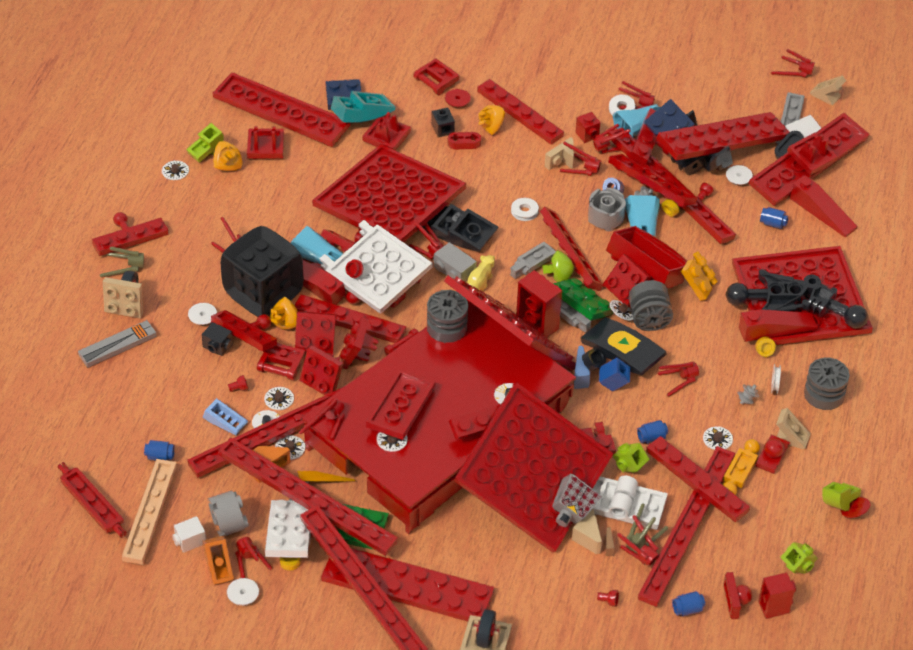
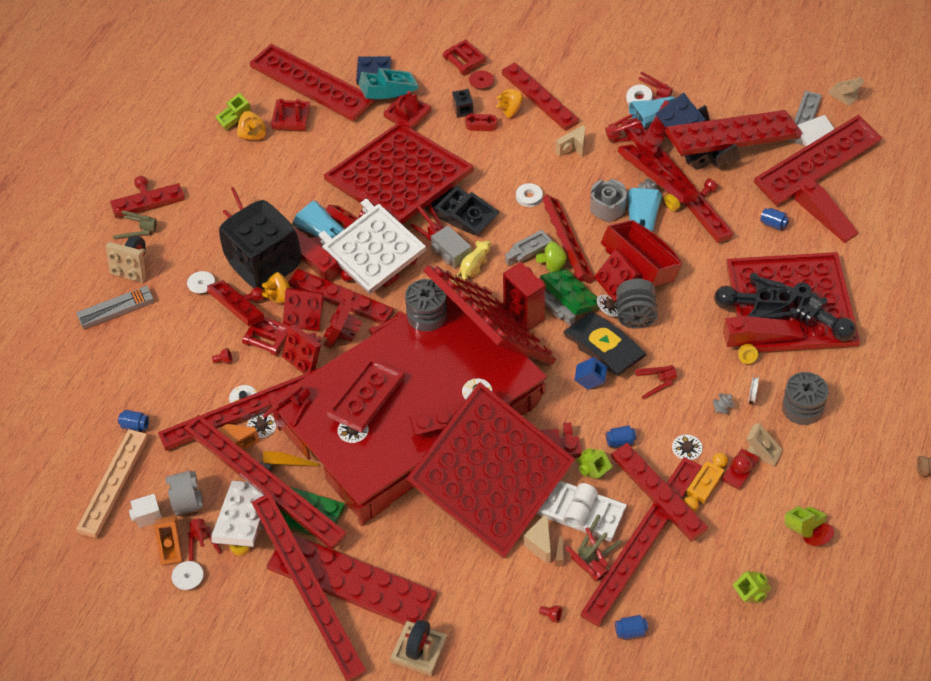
camera: 10 degrees right, 5 degrees up
(92, 500) = (60, 467): red plate -> none
(175, 170) = (202, 136): piece -> none
(217, 339) = (209, 309): black brick -> none
(223, 409) = (188, 386): light blue slope -> none
(279, 398) = (259, 373): piece -> none
(354, 268) = (348, 247): red plate -> none
(574, 500) = (527, 507): light grey torso -> none
(581, 371) = (558, 369): medium blue slope -> none
(587, 127) = (602, 115): red brick -> none
(591, 163) = (600, 153): red plant -> none
(593, 359) = (572, 355): black tile -> none
(618, 185) = (622, 176): brick -> none
(697, 280) = (687, 278): light orange plate -> none
(735, 595) = (681, 622): red tile -> none
(739, 174) = (745, 172): white piece -> none
(776, 595) = (723, 627): red brick -> none
(791, 138) = (799, 142): black tile -> none
(805, 65) = (826, 64): red plant -> none
(812, 153) = (821, 155): red plate -> none

